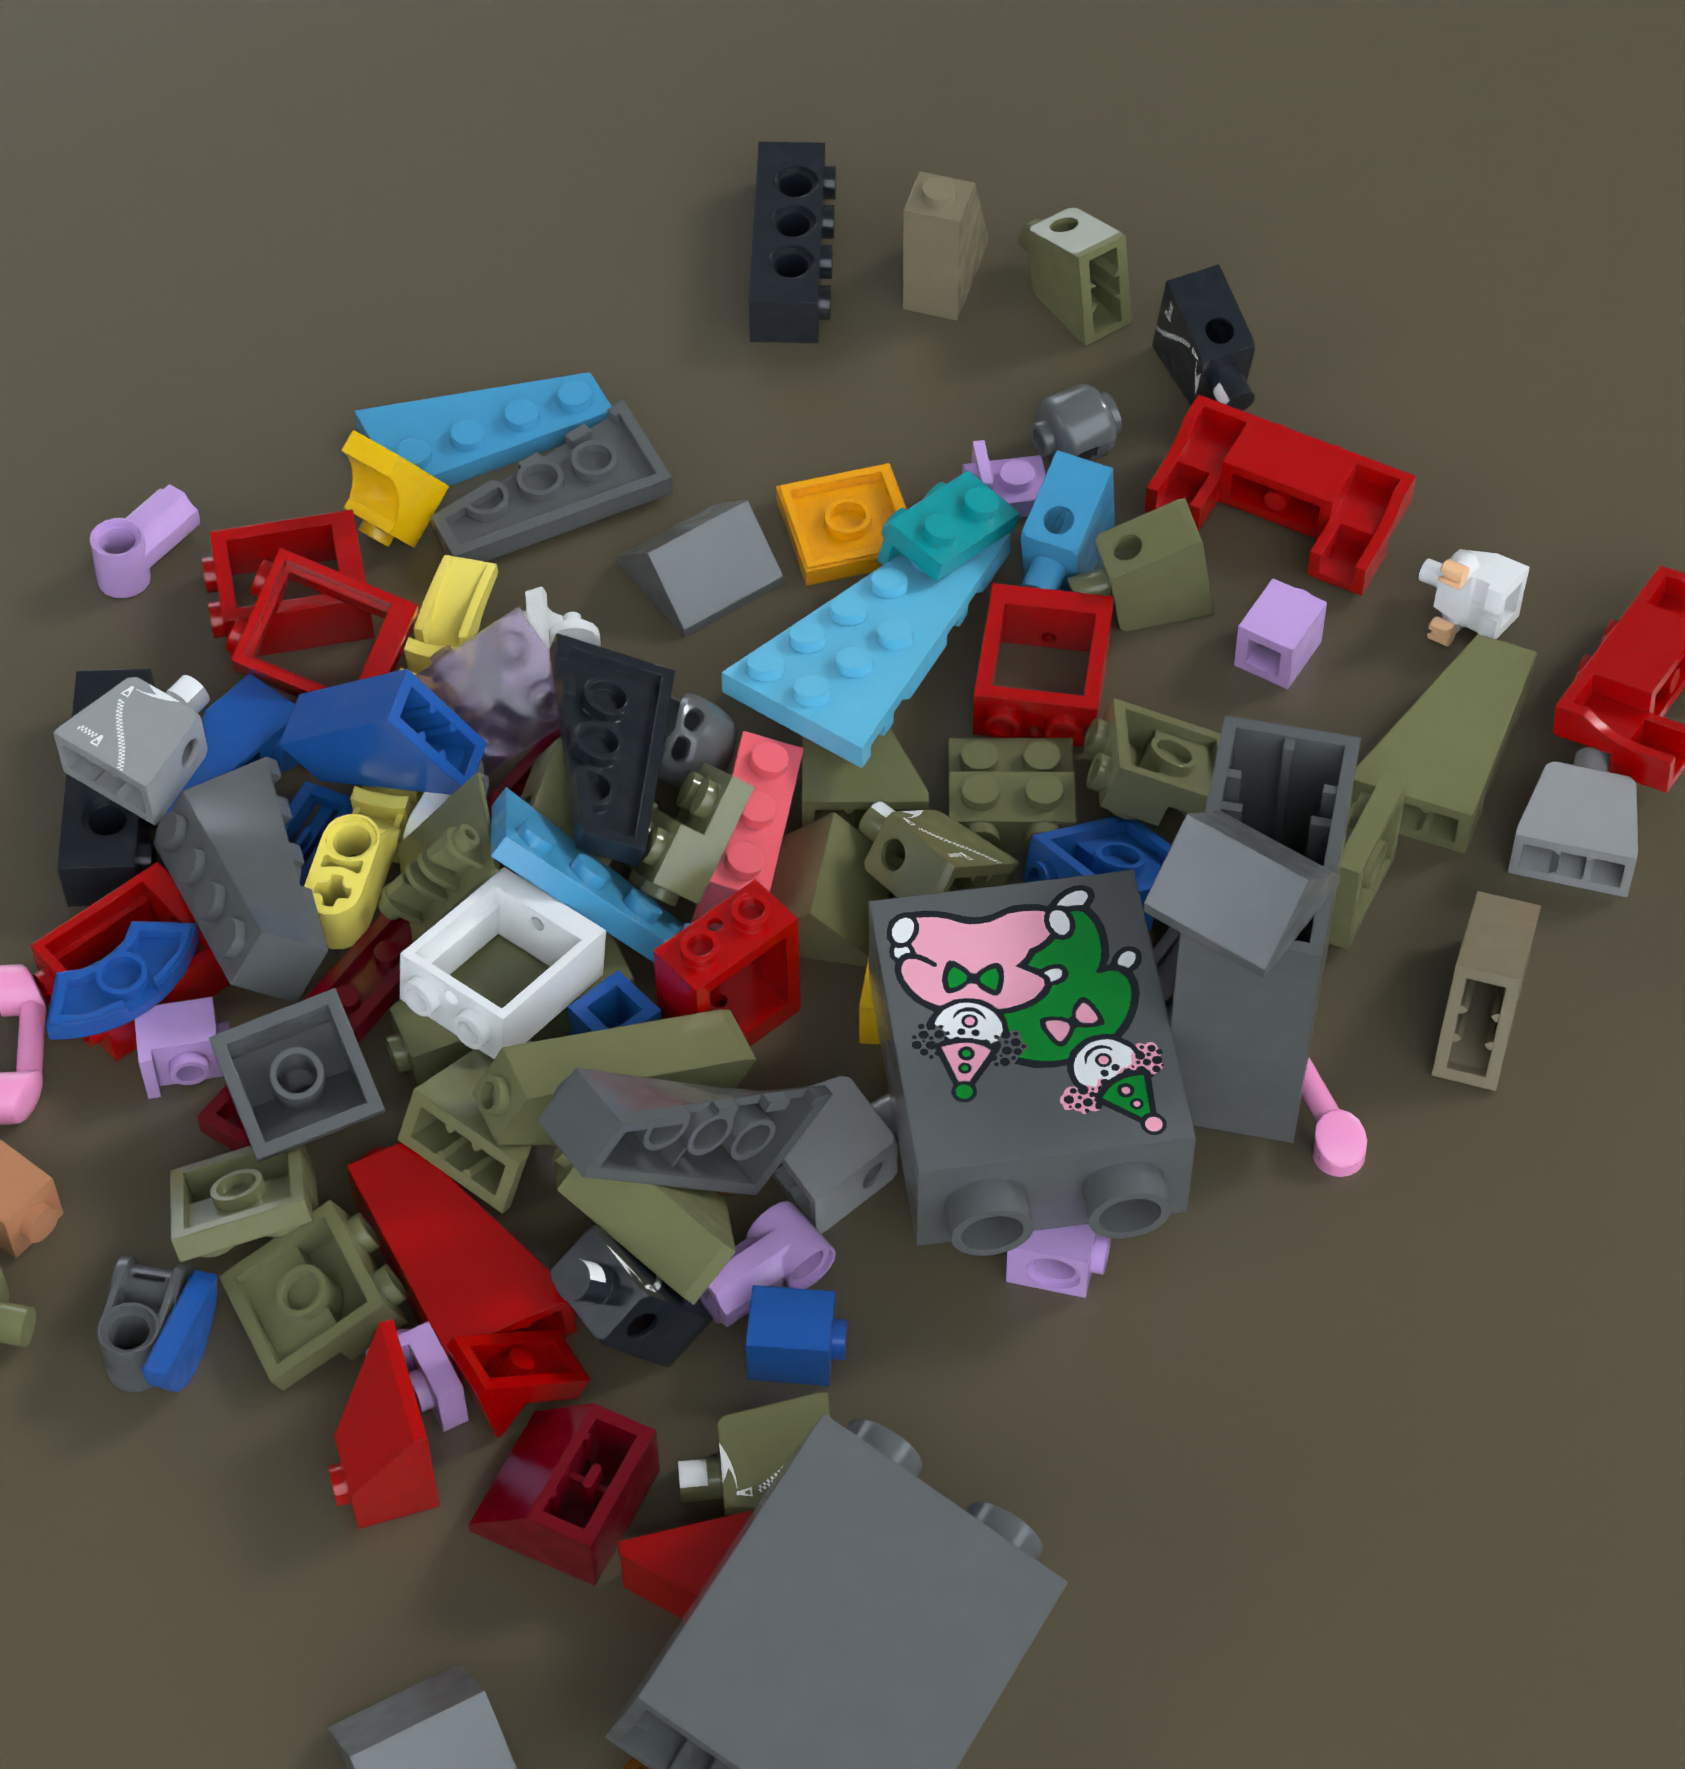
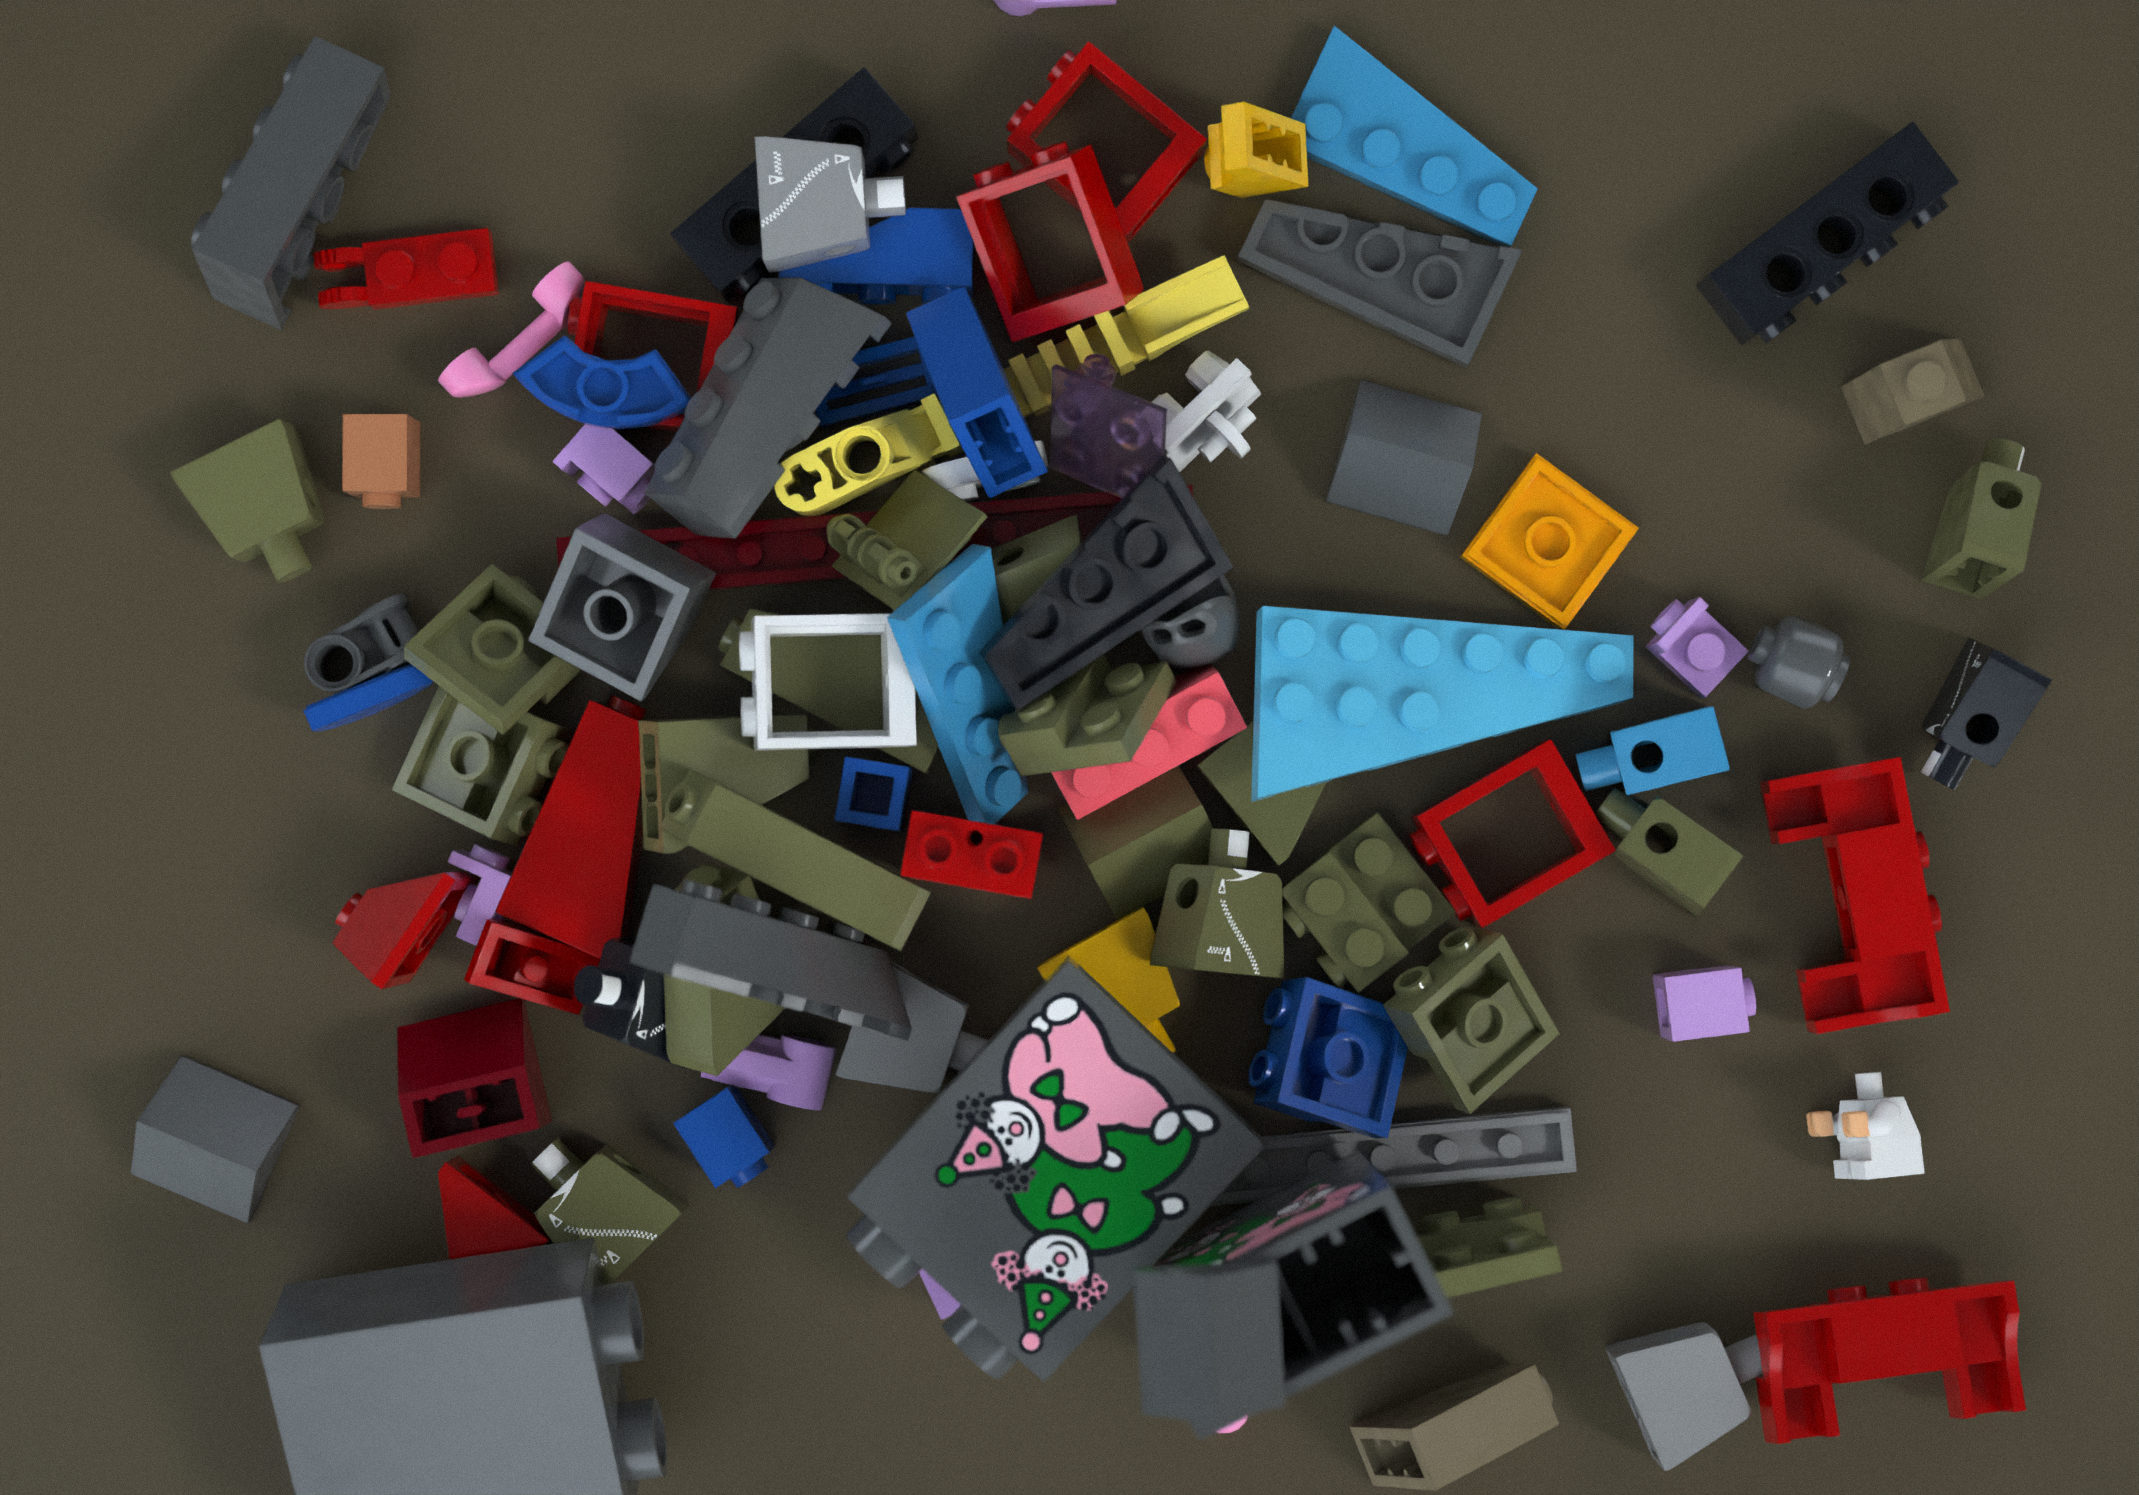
camera: 50 degrees right, 35 degrees up
(948, 526) = (1583, 656): teal bracket -> none
(1453, 742) = (1682, 1230): olive slope -> none

